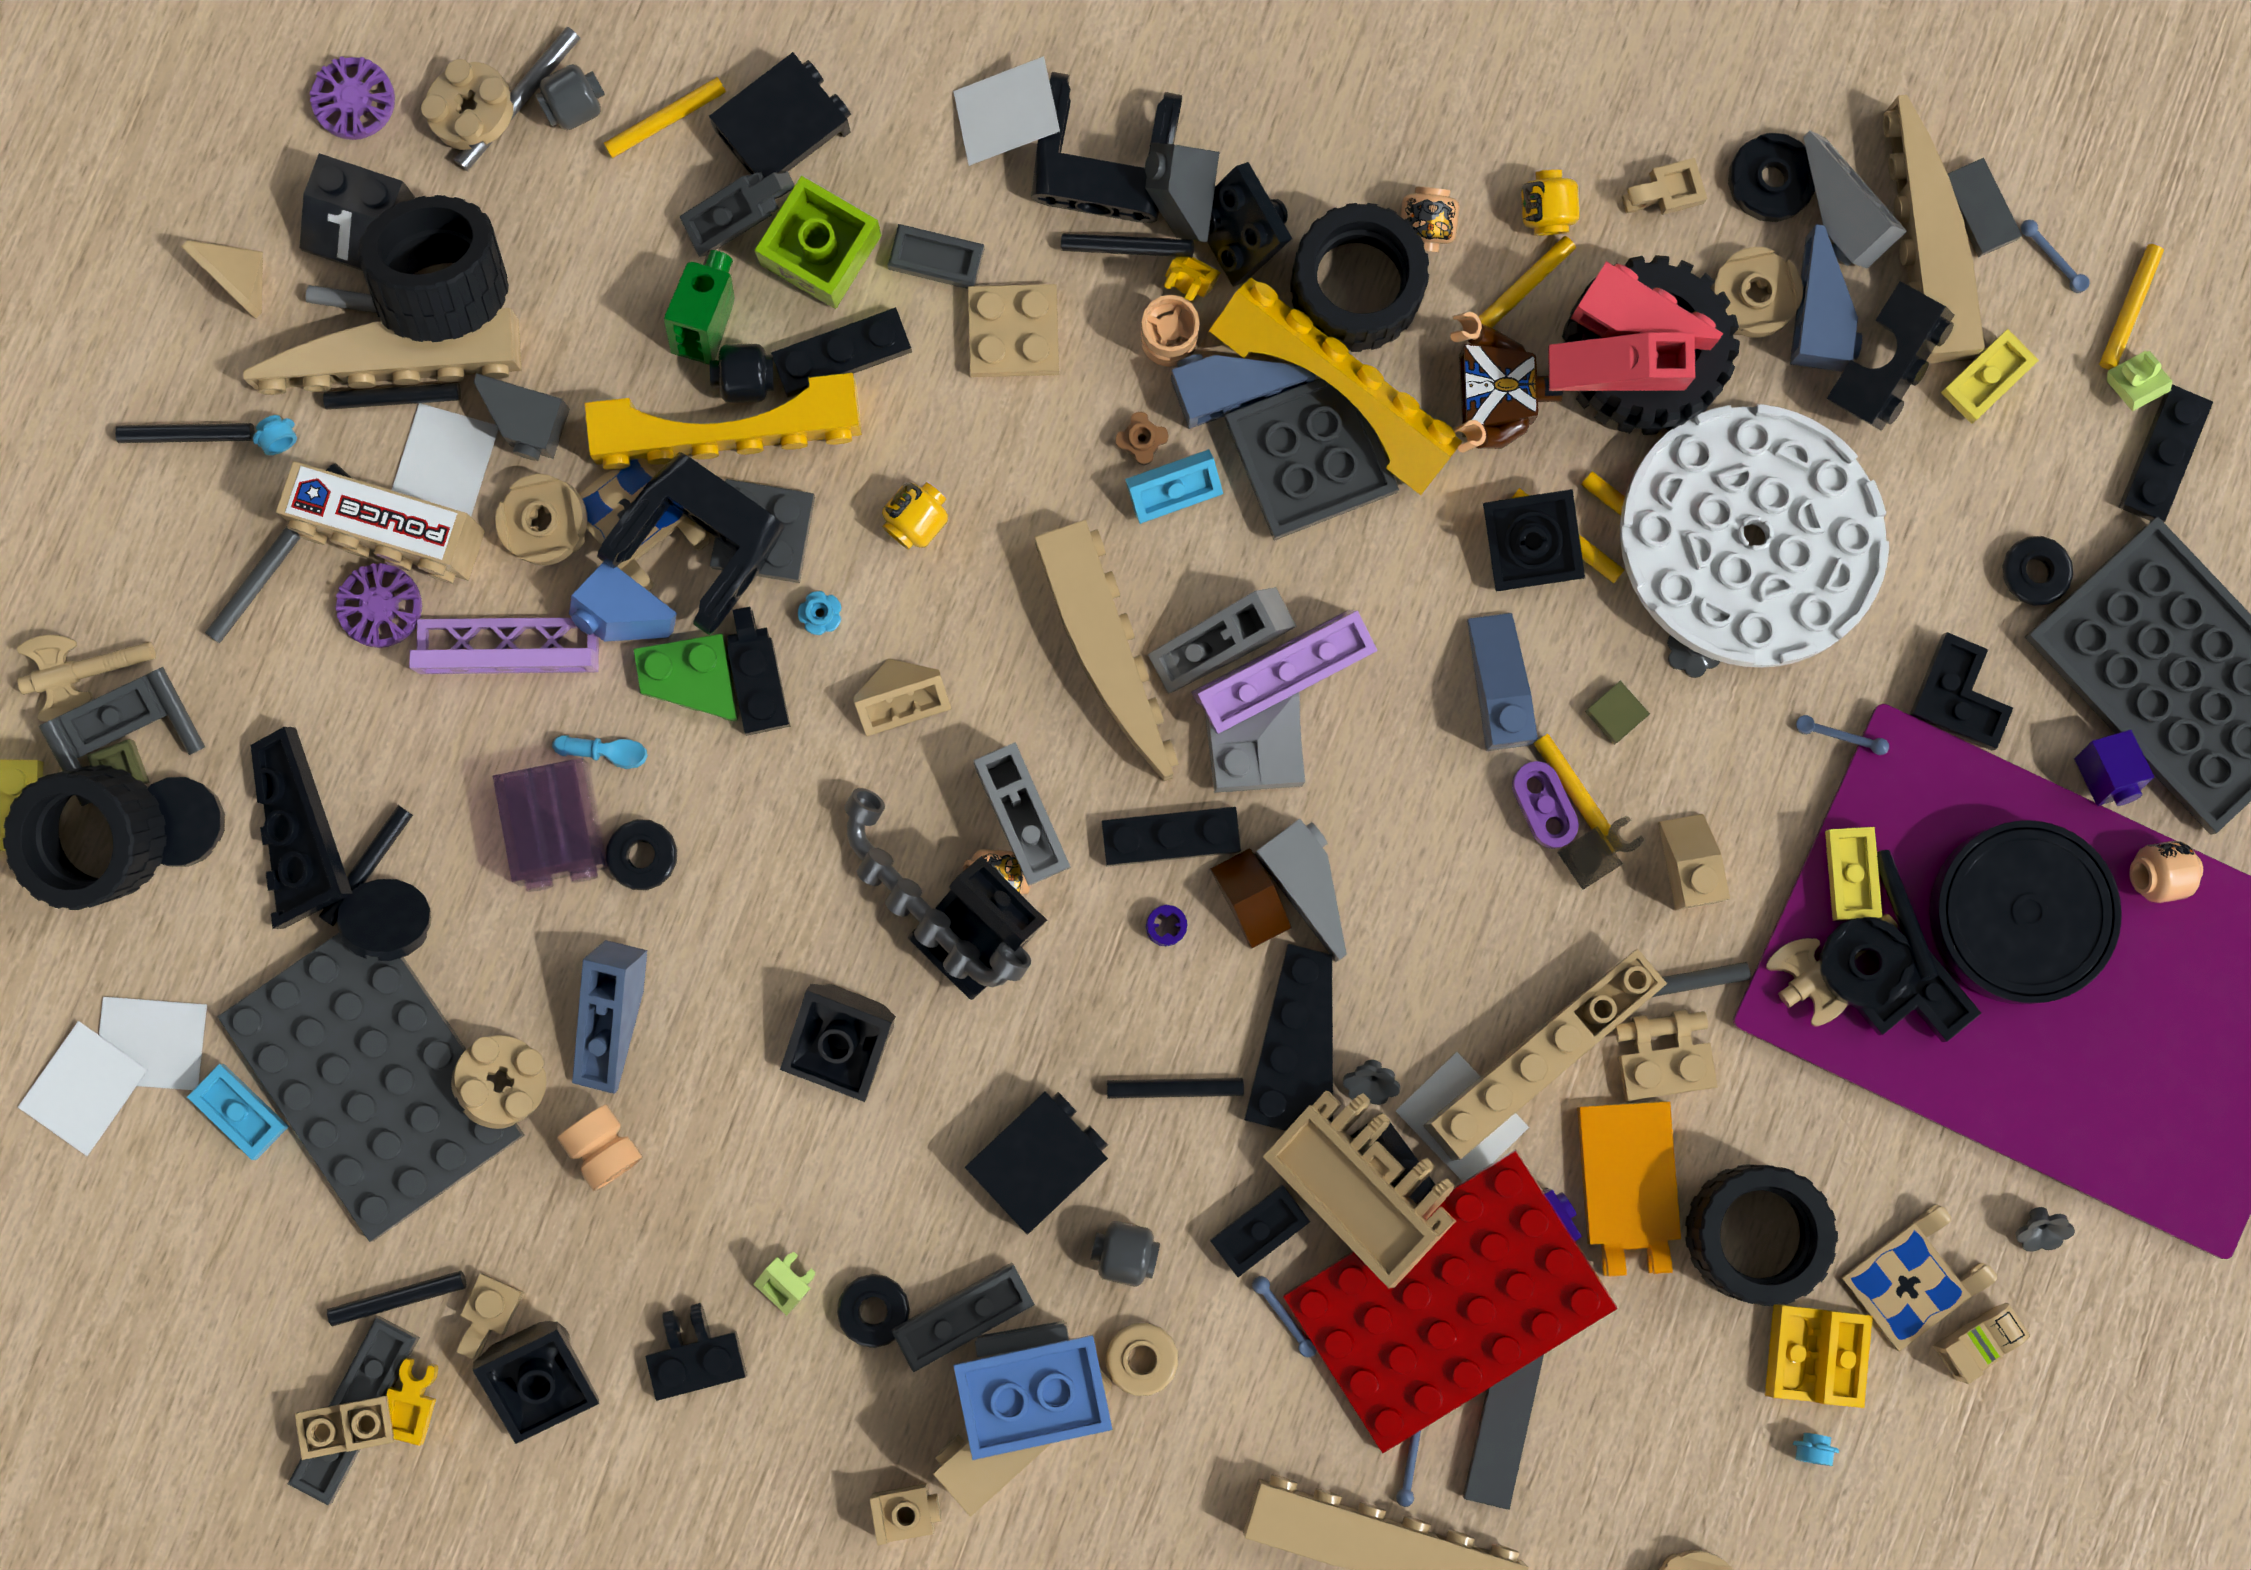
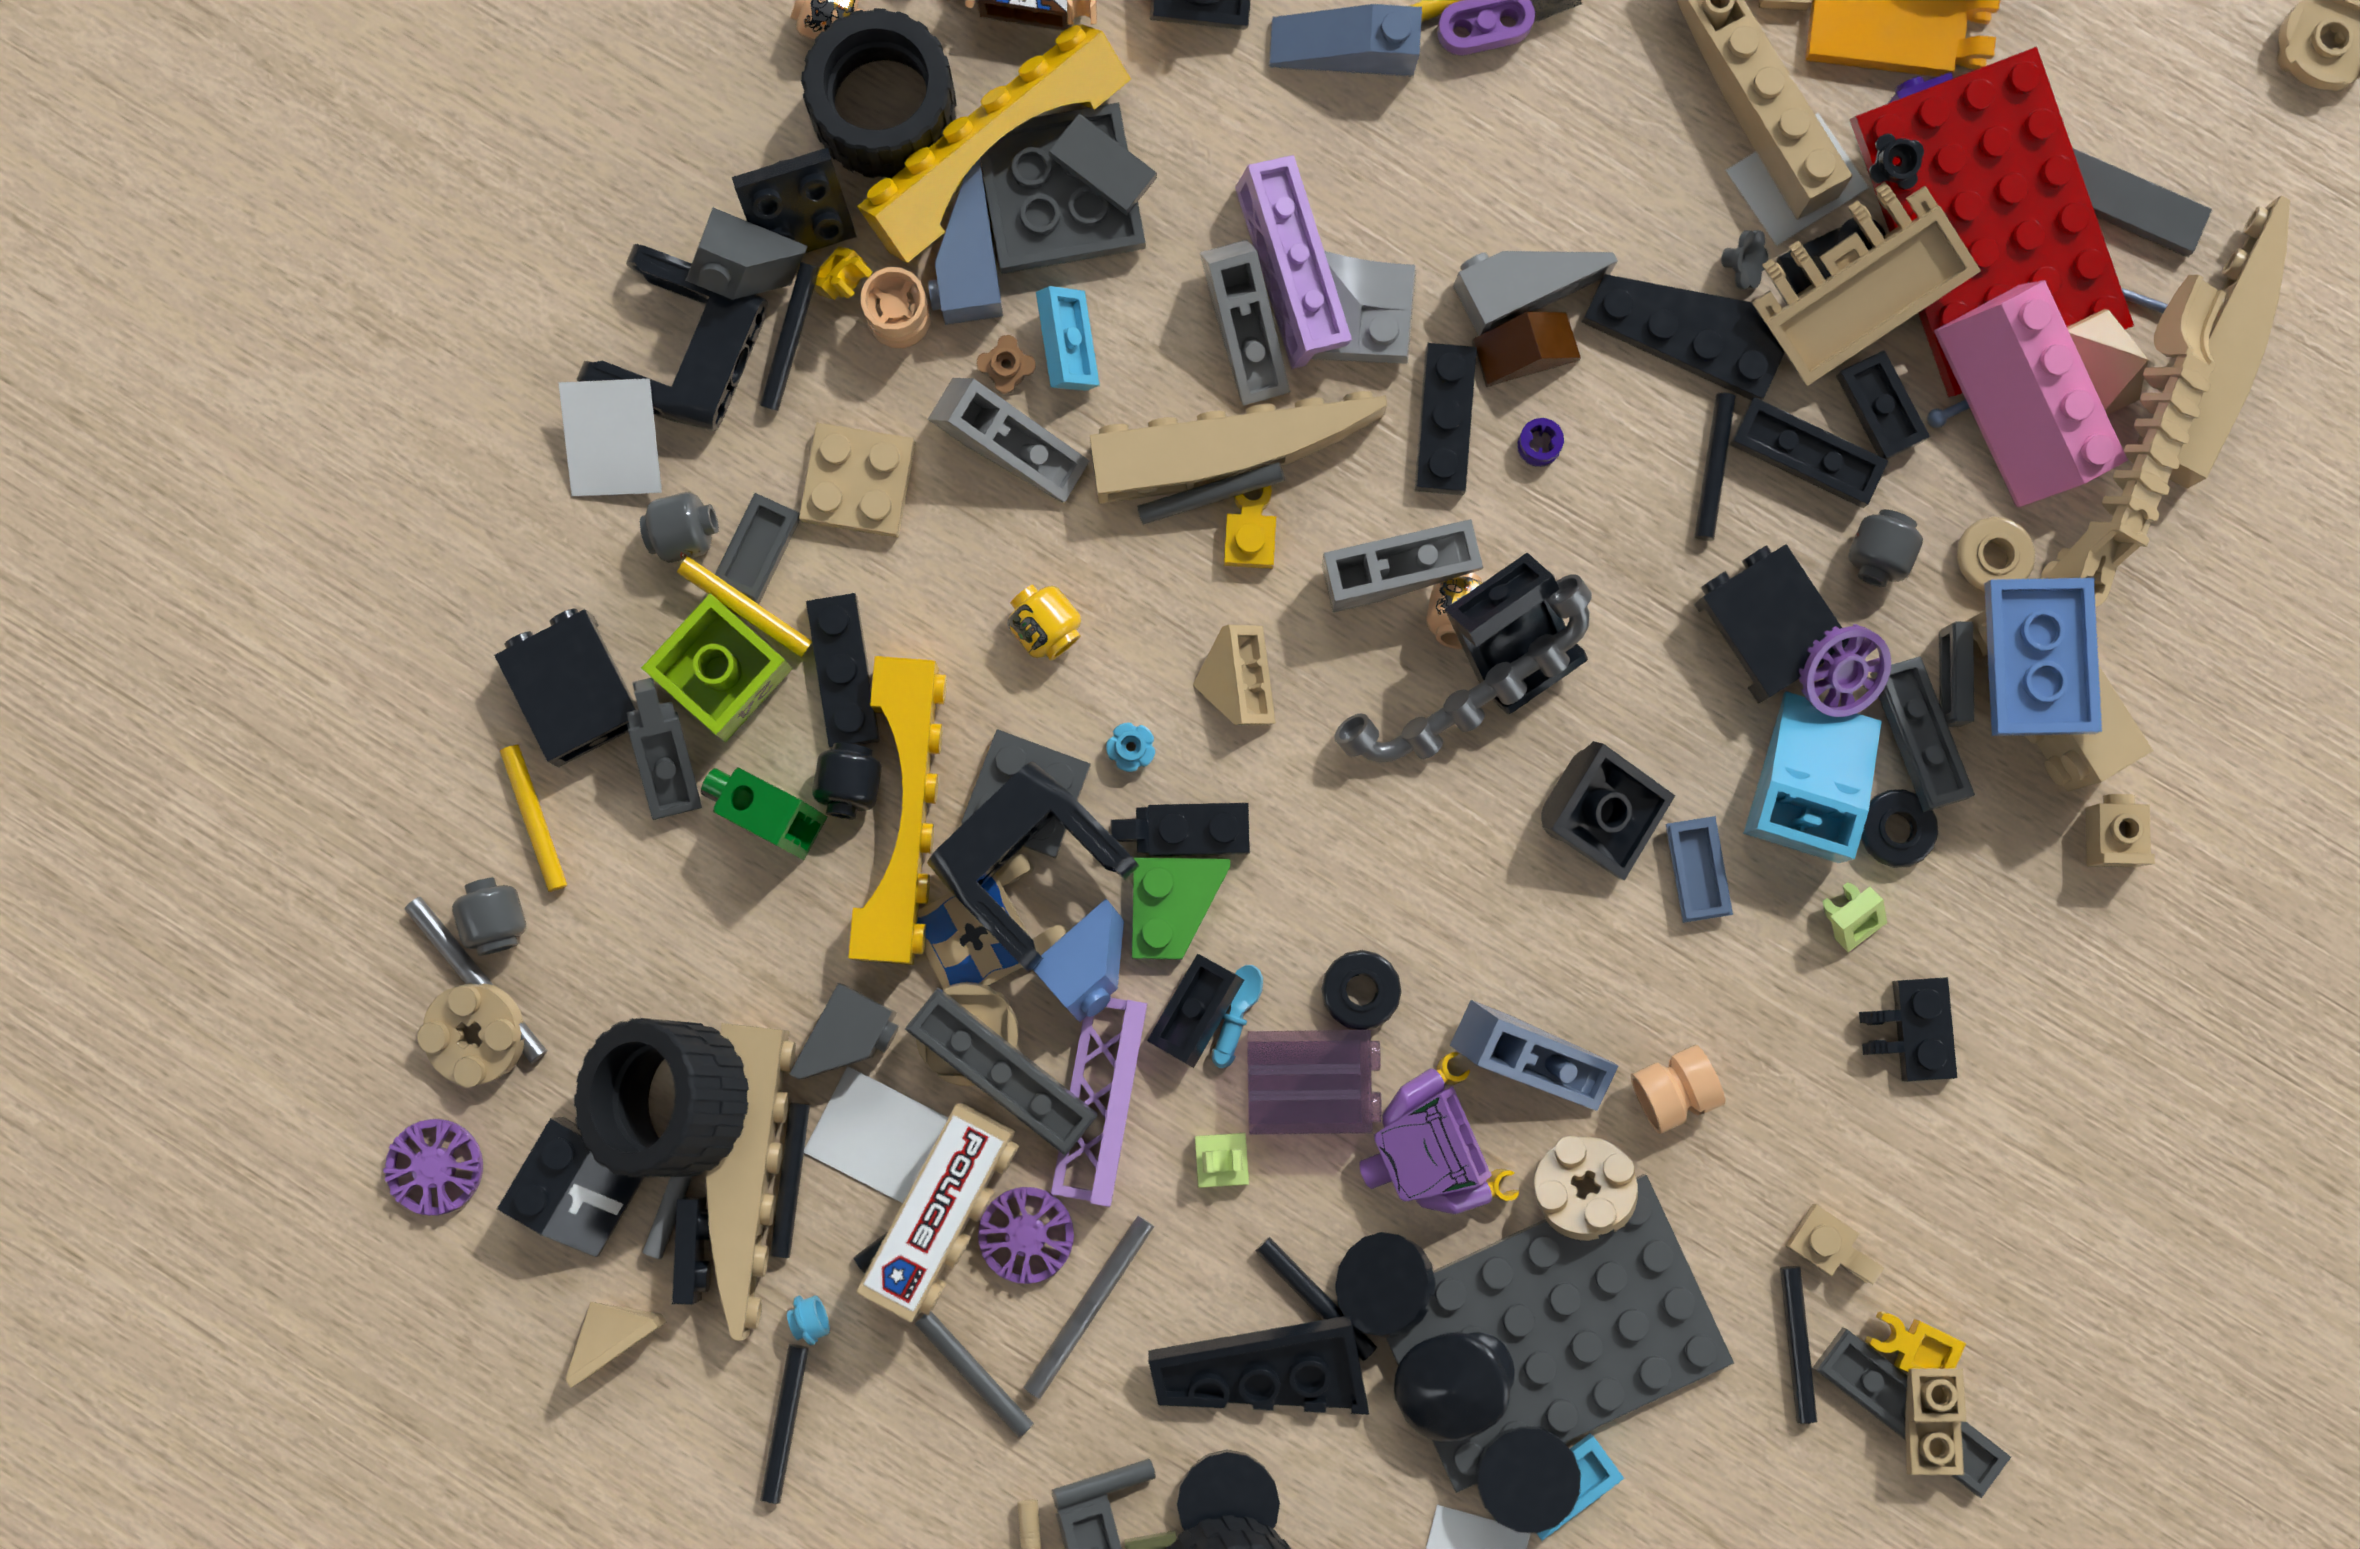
camera: 80 degrees left, 0 degrees up
(235, 1073) = (1528, 1479): none -> black tile
(300, 326) = (690, 1271): none -> black plate
(307, 995) = (1454, 1385): none -> black piece
(326, 671) = (1088, 1307): none -> flat silver bar
(471, 760) = (1221, 1160): none -> yellowish green tile
(509, 939) = (1432, 1148): none -> medium lavender torso
(511, 553) = (1001, 1071): none -> dark grey tile
(535, 1380) = (1914, 1204): black slope -> none
(596, 712) = (1195, 1010): none -> black plate
(803, 1136) = (1699, 869): none -> sand blue tile
(880, 255) = (744, 606): none -> yellow bar
(903, 1225) = (1815, 781): none -> medium azure slope
(938, 185) = (678, 527): none -> dark grey head
(1001, 1232) = (1845, 670): none -> medium lavender wheel
(1029, 682) = (1249, 534): none -> yellow plate
(1059, 639) = (1211, 493): none -> dark grey bar
(1073, 452) = (1007, 437): none -> light grey slope
(1202, 1170) = (1809, 452): none -> black plate
(1291, 1360) = (2031, 394): none -> bright pink slope
(1336, 484) = (1102, 164): none -> dark grey tile
(1338, 1427) = (2110, 359): none -> slope
(1366, 1489) = (2179, 335): none -> tan piece
(1486, 1202) = (1910, 155): none -> black plate

